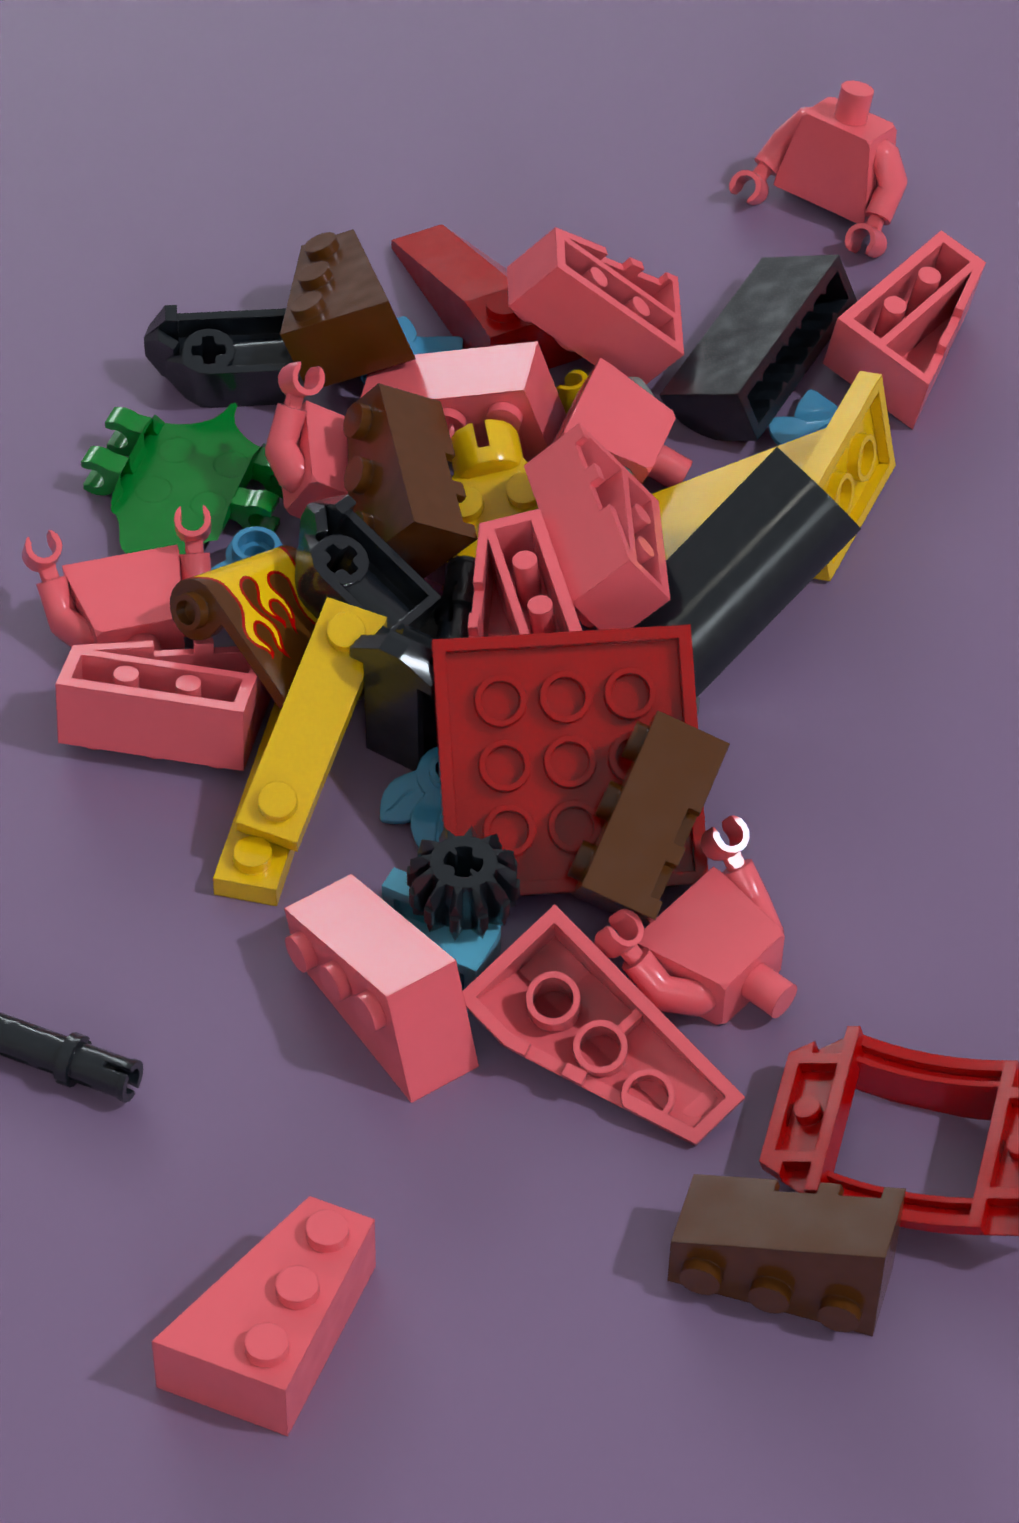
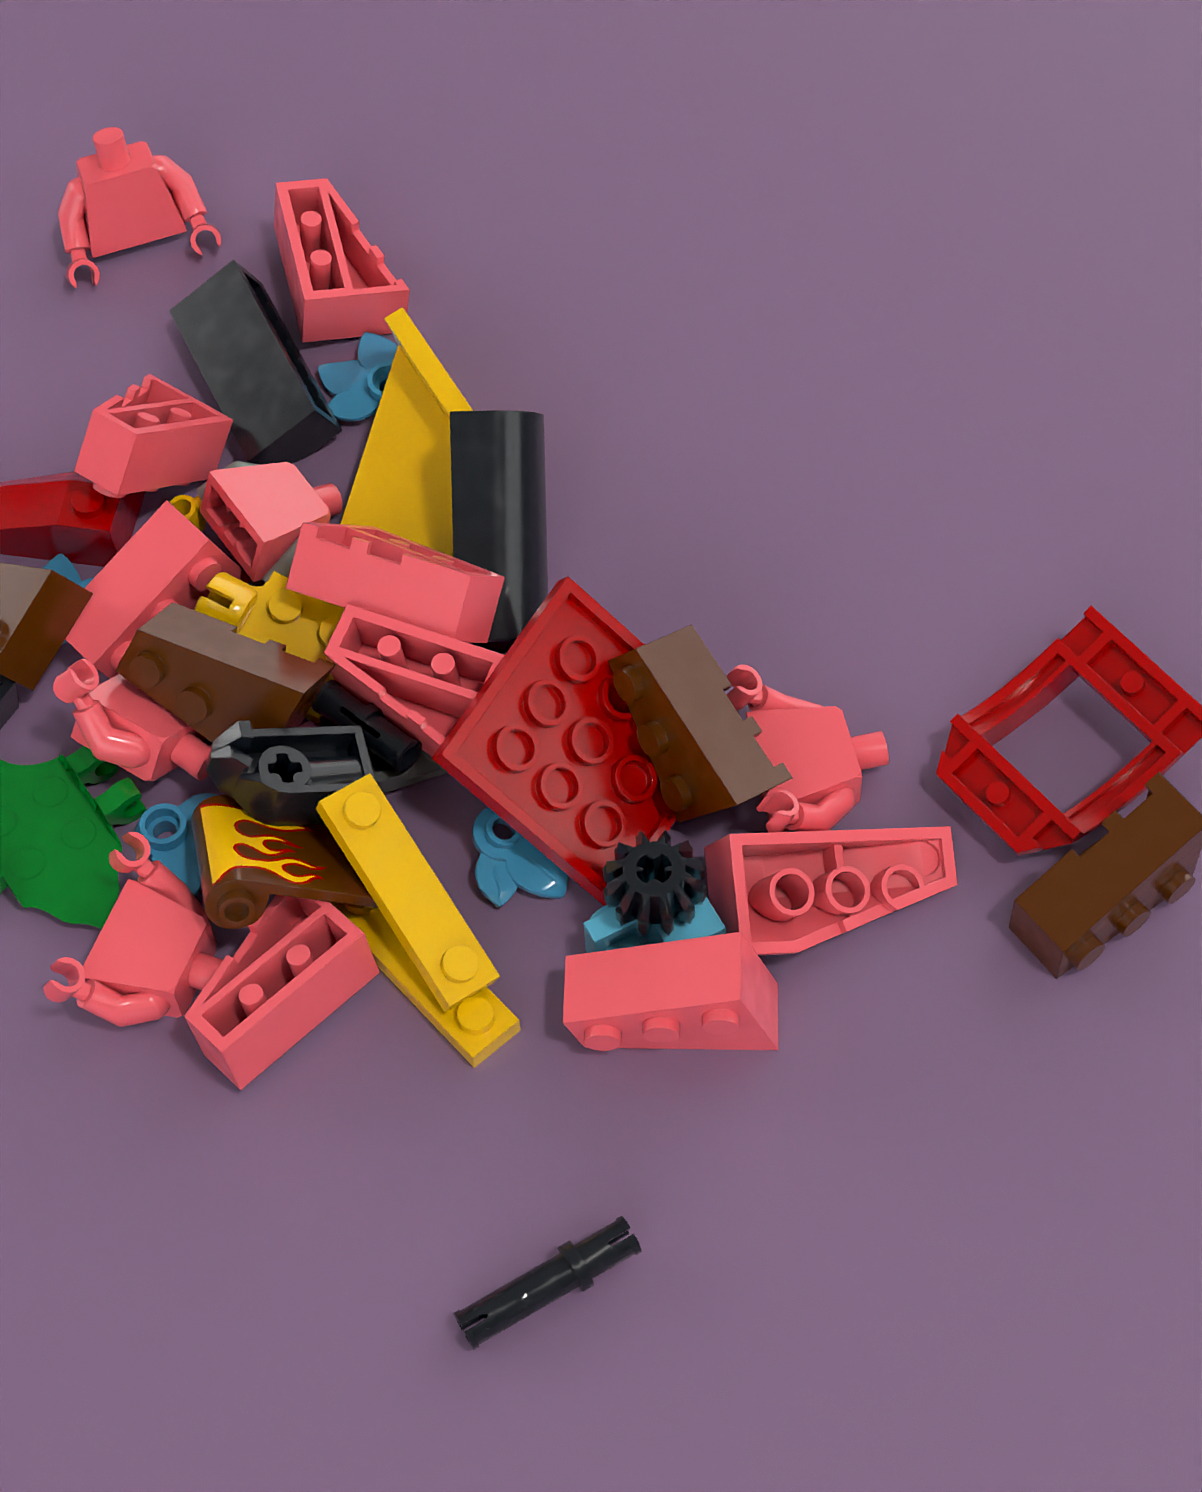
camera: 50 degrees left, 10 degrees up
(271, 1318) = (938, 1262): coral wedge -> none
(398, 693) = (427, 803): black piece -> none

